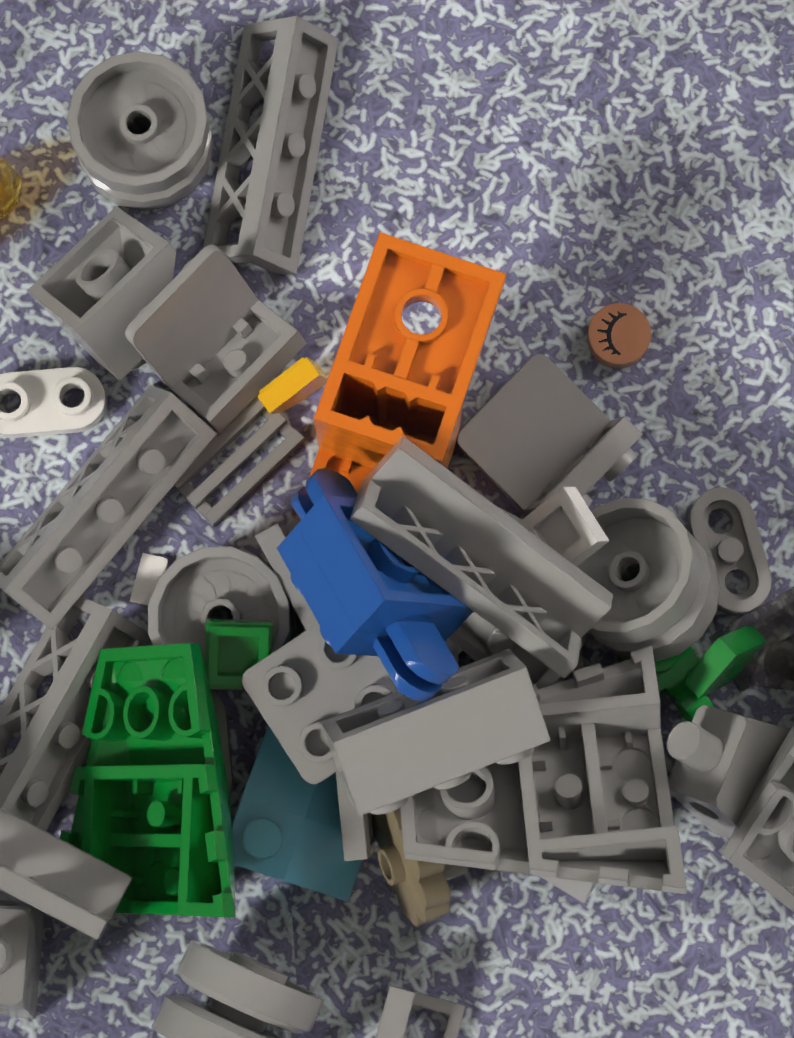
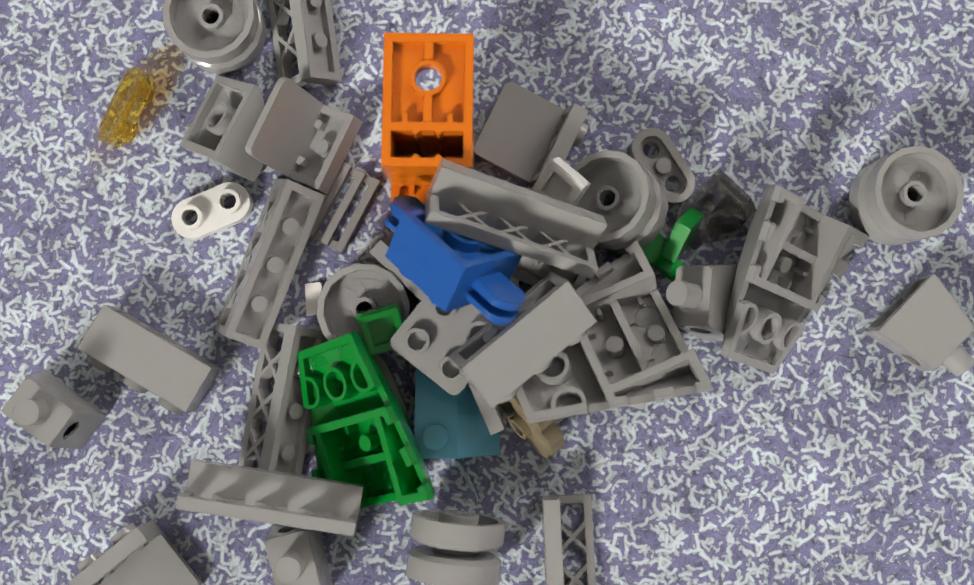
camera: 15 degrees left, 5 degrees up
(292, 386) = (362, 151): yellow tile -> none
(618, 335) = (552, 56): nougat tile -> none

